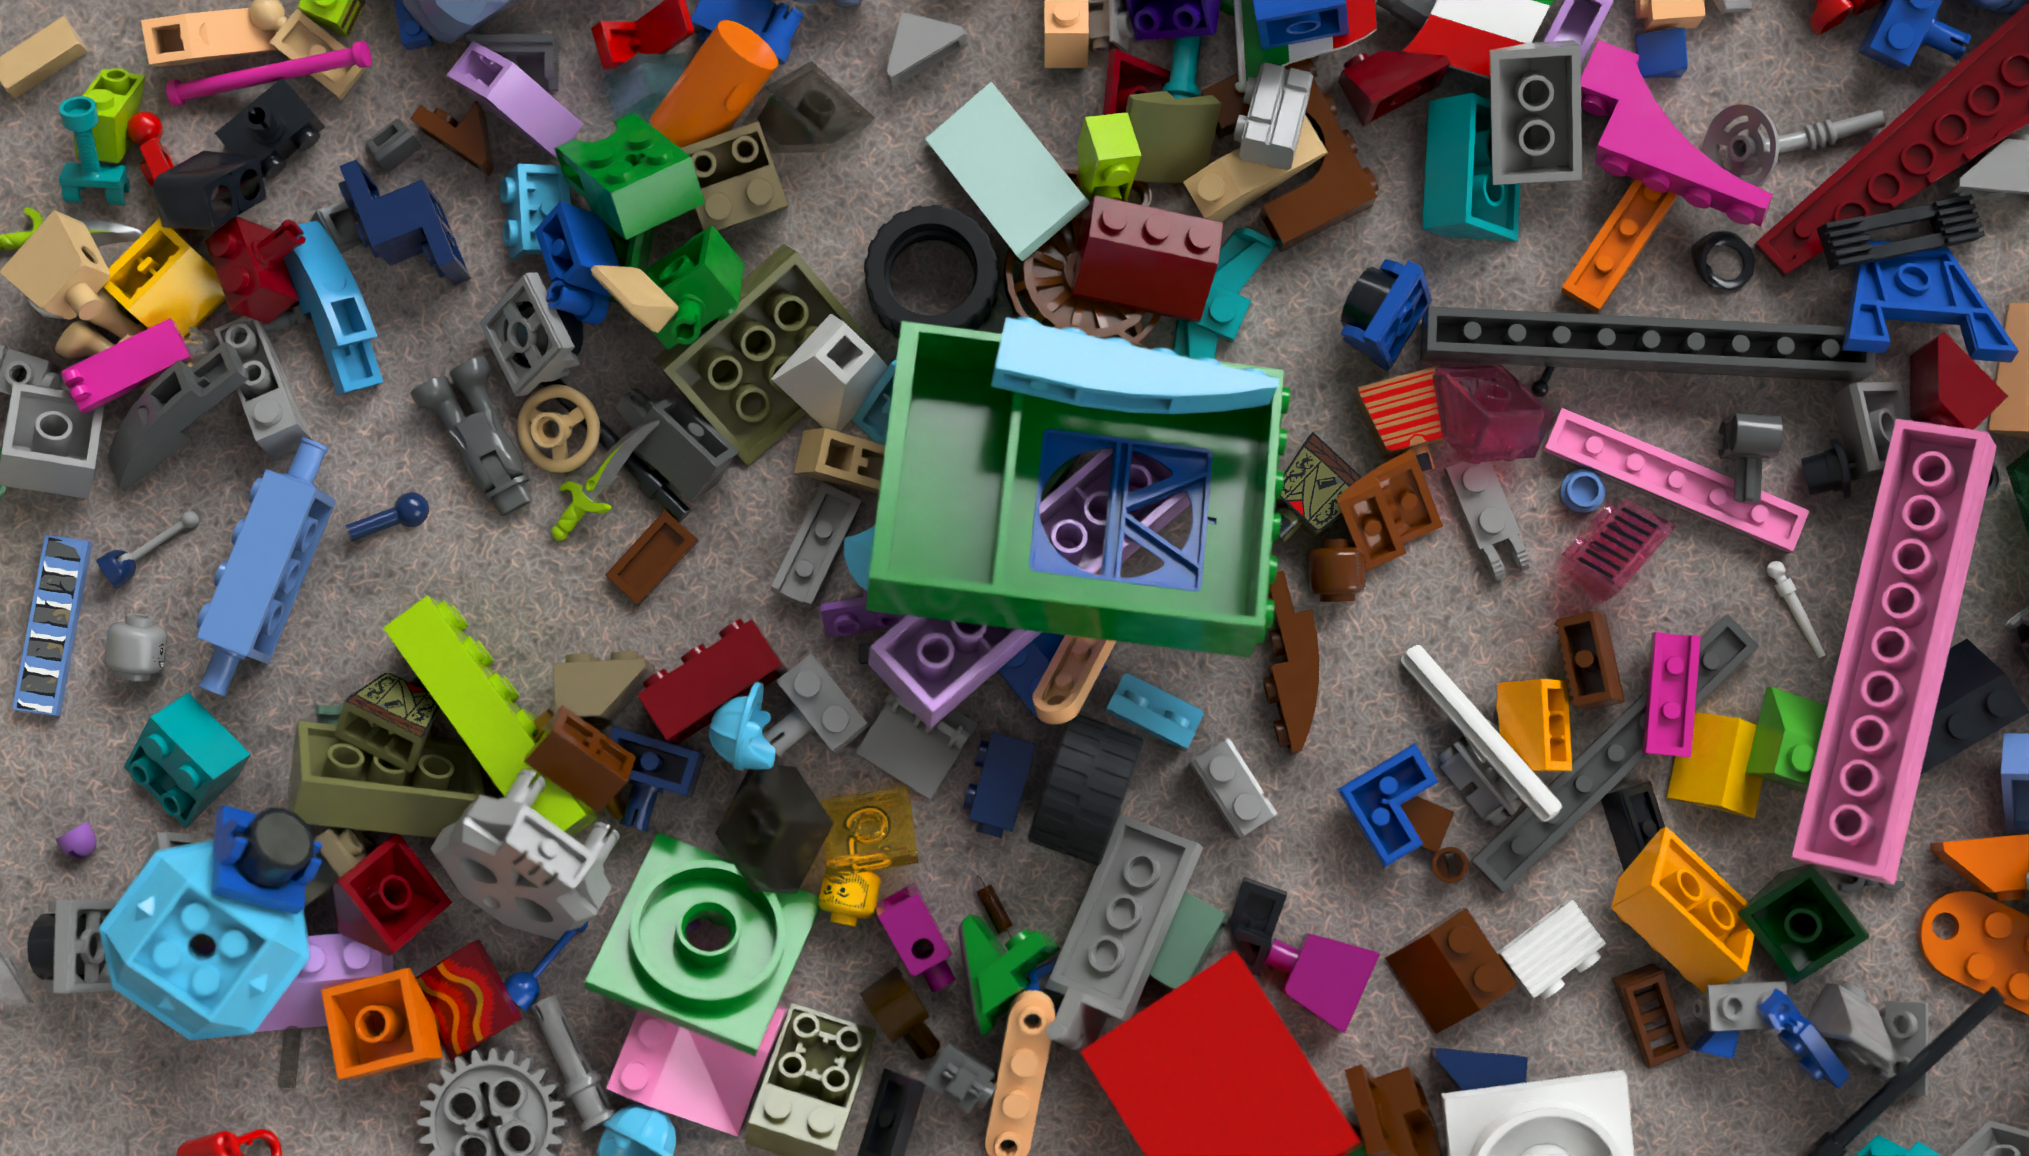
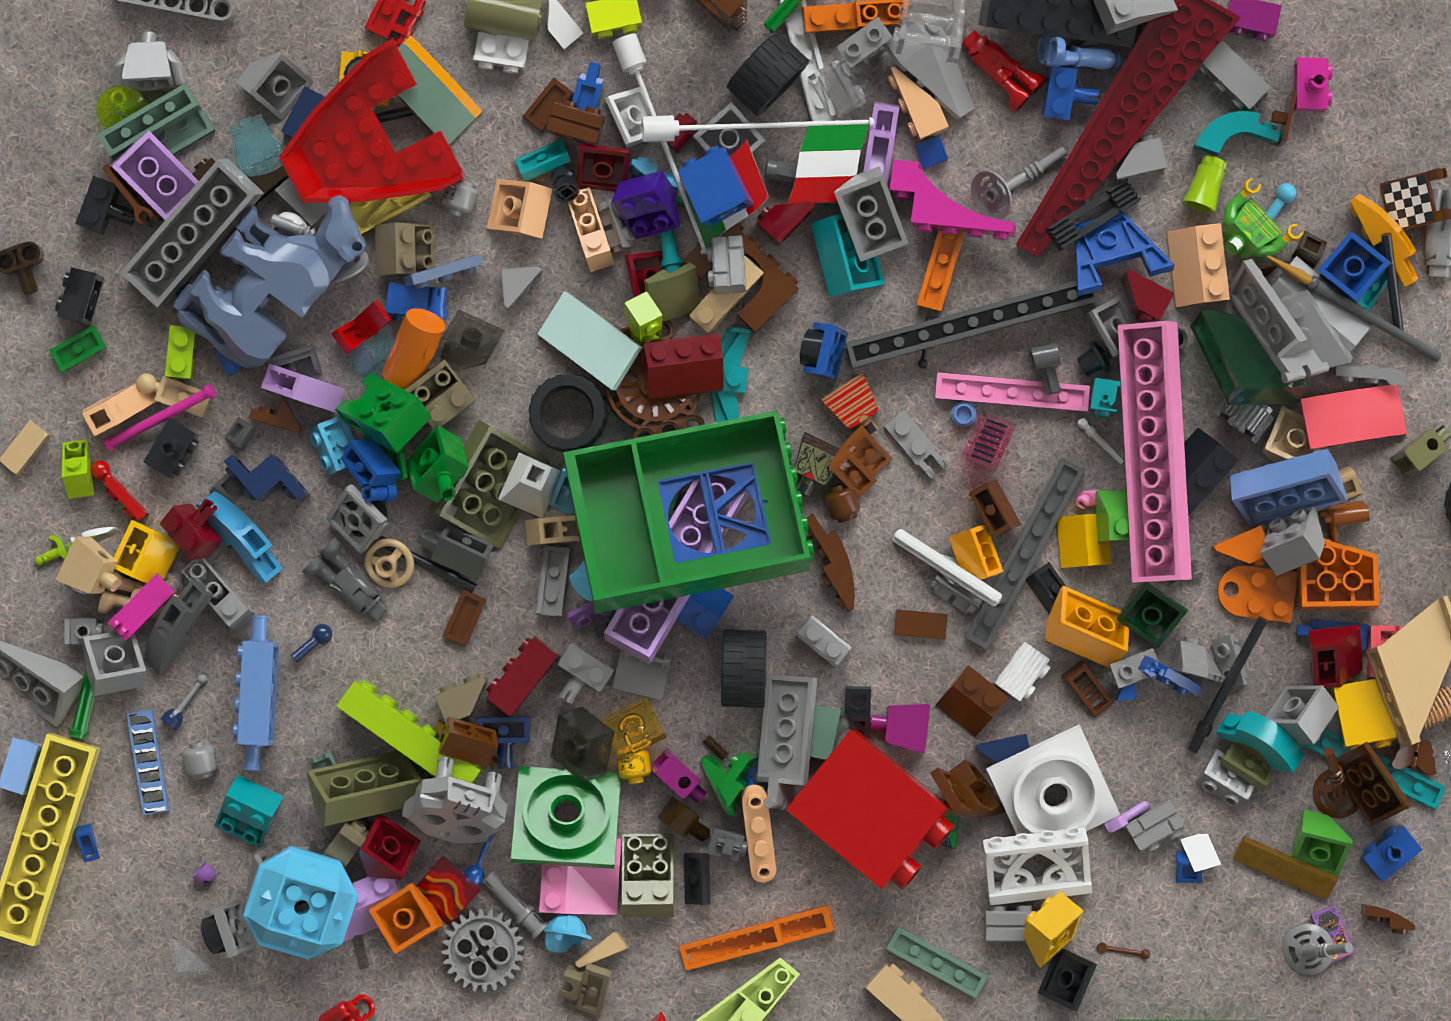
camera: 20 degrees left, 5 degrees up
(80, 116) = (70, 480): teal bar -> none
(186, 190) = (154, 496): black piece -> none
(269, 851) = (319, 845): piece -> none
(389, 719) = (356, 753): olive torso -> none
(585, 496) = (421, 585): piece -> none
(636, 294) = (413, 481): tan slope -> none
(738, 732) = (546, 699): medium azure piece -> none
(1001, 785) = (697, 679): dark blue brick -> none
(1070, 678) = (715, 613): light nougat plate -> none
(1120, 376) = (689, 445): slope -> none
(1155, 711) = (768, 612): medium azure bracket -> none
(1376, 802) = (902, 621): blue brick -> none
(1441, 867) = (950, 646): reddish brown hinge -> none
(1489, 414) = (897, 390): clear pink slope -> none
(1671, 694) = (1044, 512): dark pink hinge -> none
(1717, 239) = (988, 254): black piece -> none
(1746, 696) = (1086, 499): none -> bright pink arm
(1828, 532) = (1103, 397): none -> teal hinge

